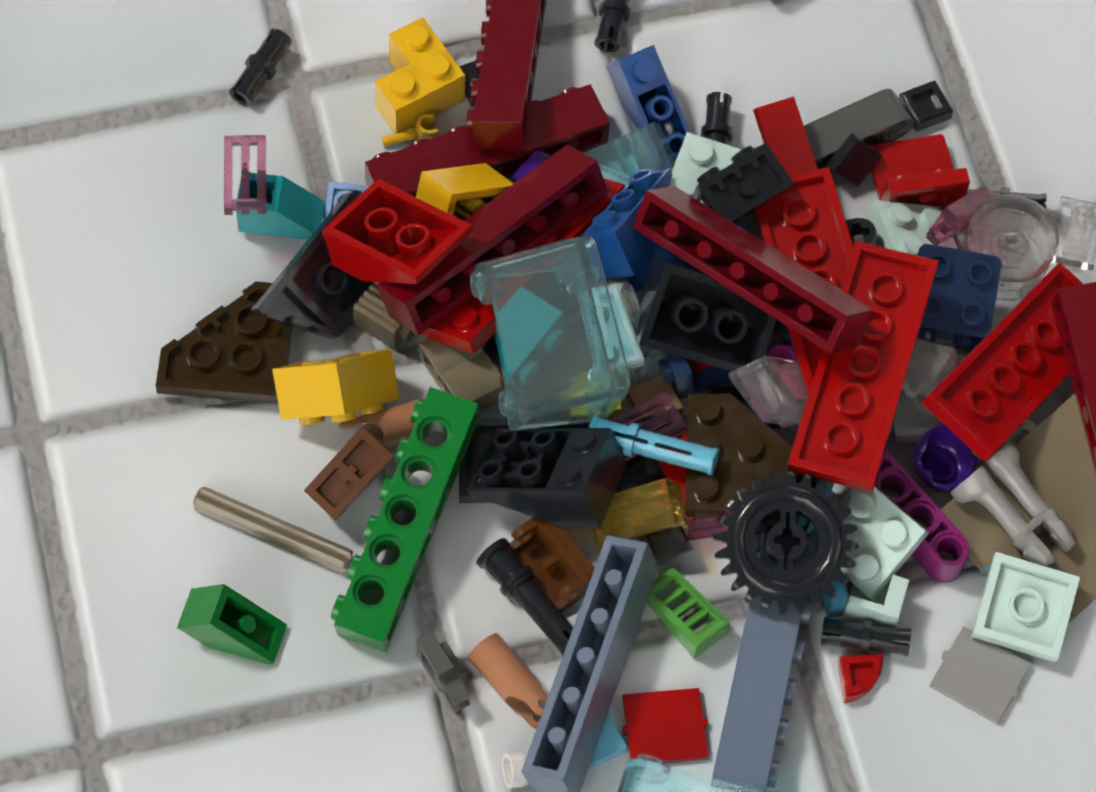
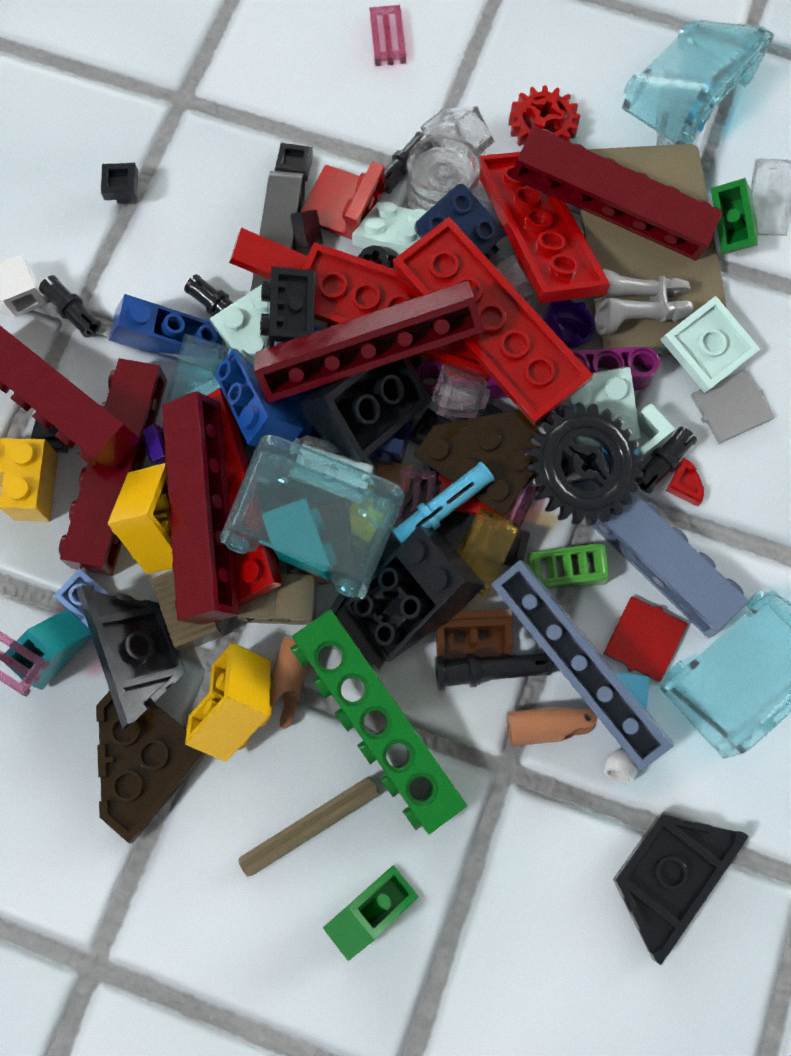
camera: 50 degrees left, 10 degrees up
(350, 472) = (312, 739): reddish brown hinge -> none
(392, 236) = (149, 580): red slope -> none
(419, 132) = (60, 505): yellow hand -> none
(439, 663) = (502, 770): dark grey plate -> none
(957, 216) = (402, 189): clear pink tile -> none

